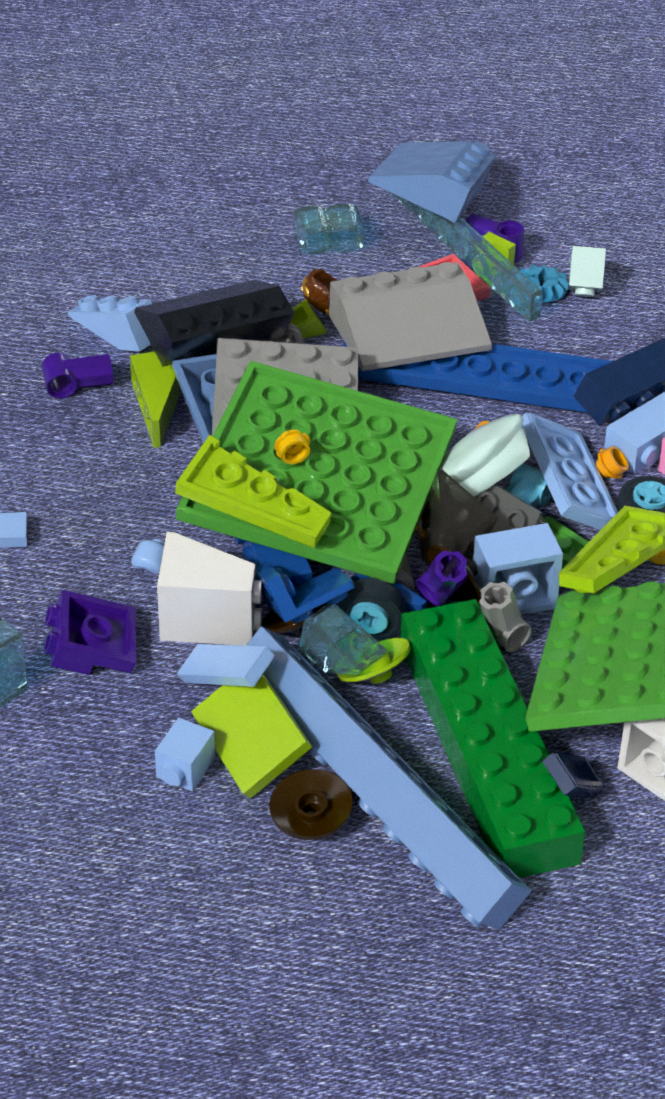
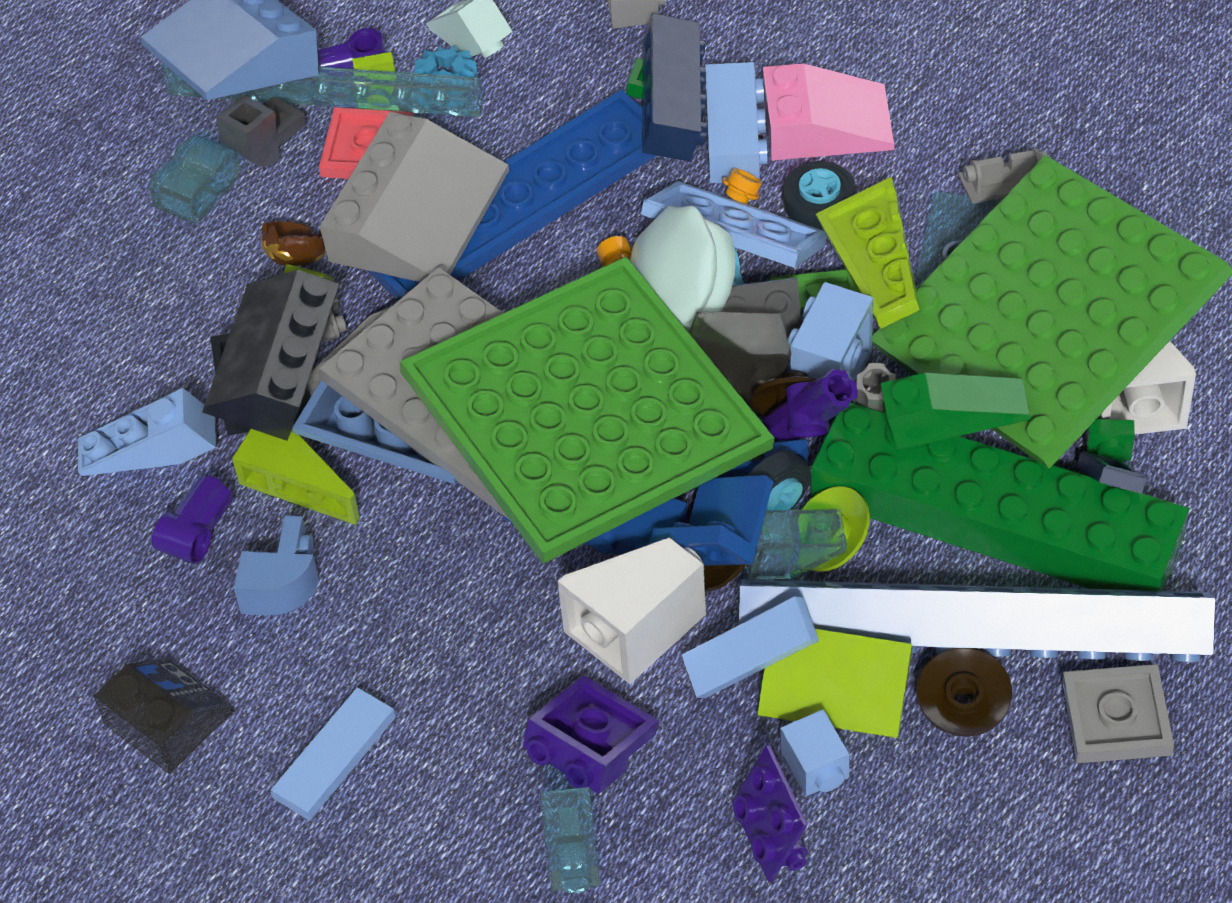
camera: 45 degrees left, 10 degrees up
(74, 433) = (279, 580): none -> medium blue brick
(108, 761) = (771, 817): none -> dark purple hinge
(148, 555) = (512, 621): light blue piece -> none
(235, 488) = (574, 486): lime wing -> none
(292, 446) = (557, 405): yellow plate -> none
(380, 902) = (1117, 713): none -> light grey plate
(387, 232) = (258, 129): none -> flat silver brick
(511, 639) = (951, 405): none -> green slope
(612, 766) = (1111, 438): none -> green plate

